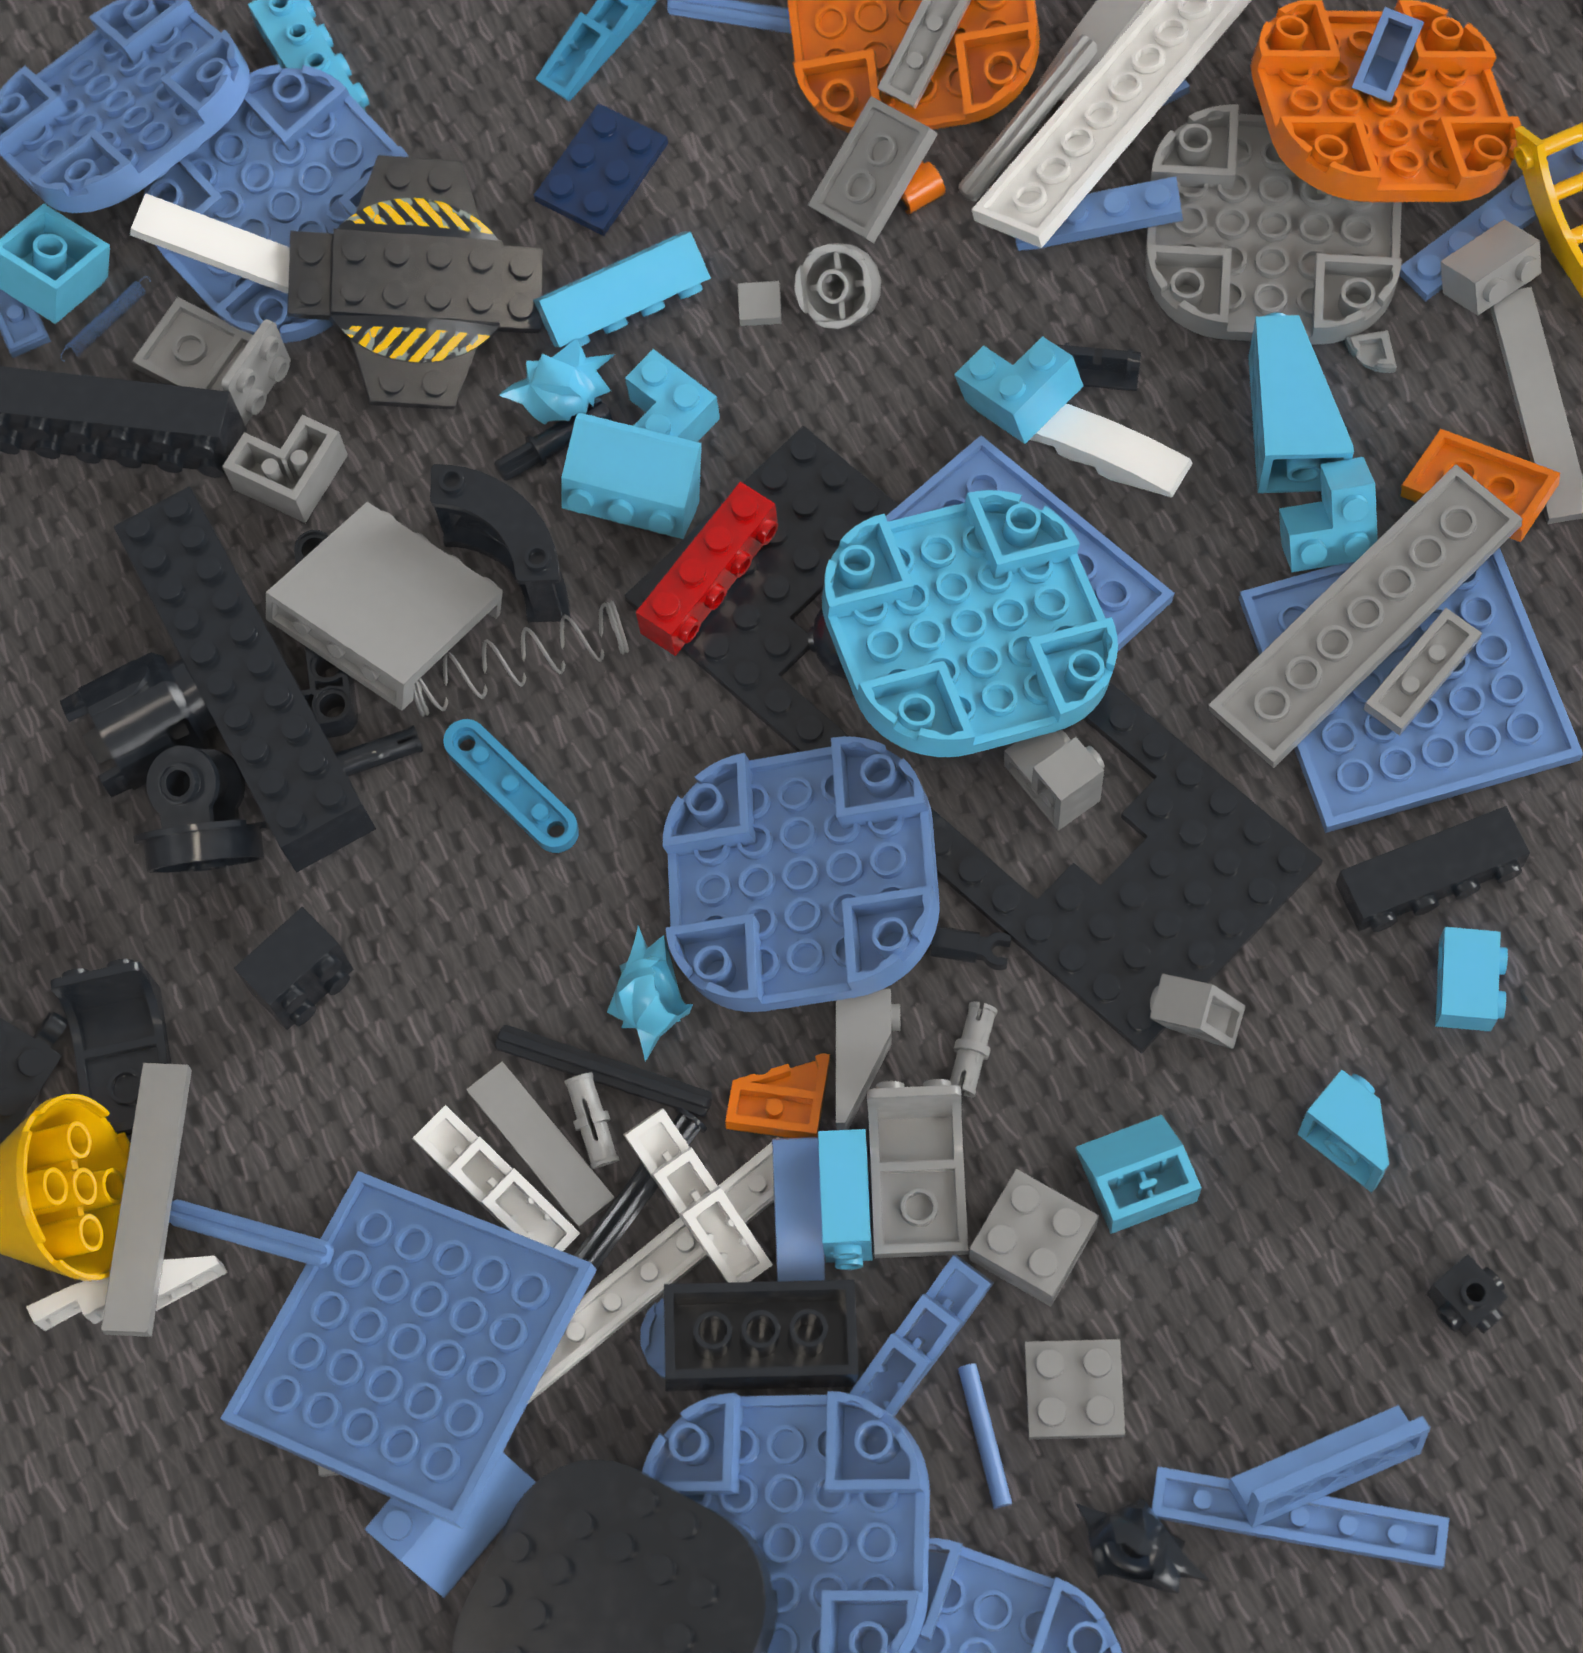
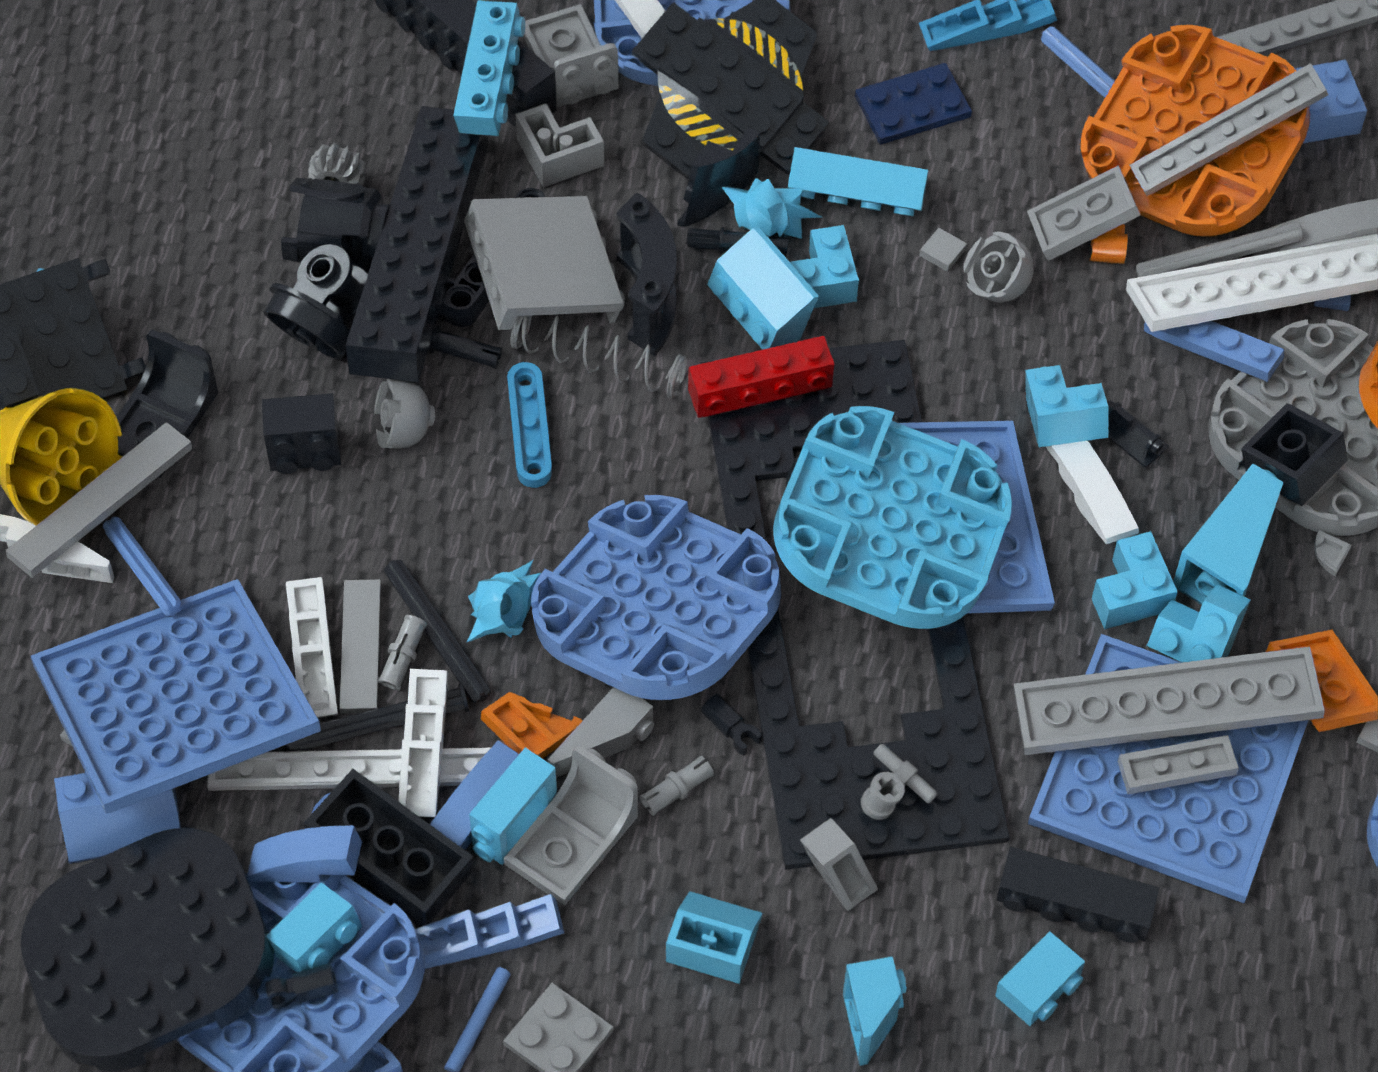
camera: 30 degrees right, 10 degrees down
(80, 657) = (337, 165): none -> light grey gear
(162, 437) = (488, 68): none -> medium azure brick
(378, 867) = (405, 410): none -> light grey cylinder
(479, 381) = (716, 169): none -> black slope
(695, 1411) = (306, 855): none -> medium blue slope
(774, 1481) = (314, 930): none -> medium azure brick
(811, 1546) = (302, 986): none -> black bar
(1033, 1237) = (611, 922): light grey brick -> none
(1057, 775) = (878, 659): light grey brick -> none
(1187, 901) = (888, 788): none -> light grey piece
(1237, 513) = (1139, 588): none -> medium azure brick
(1279, 273) = (1297, 451): none -> black brick

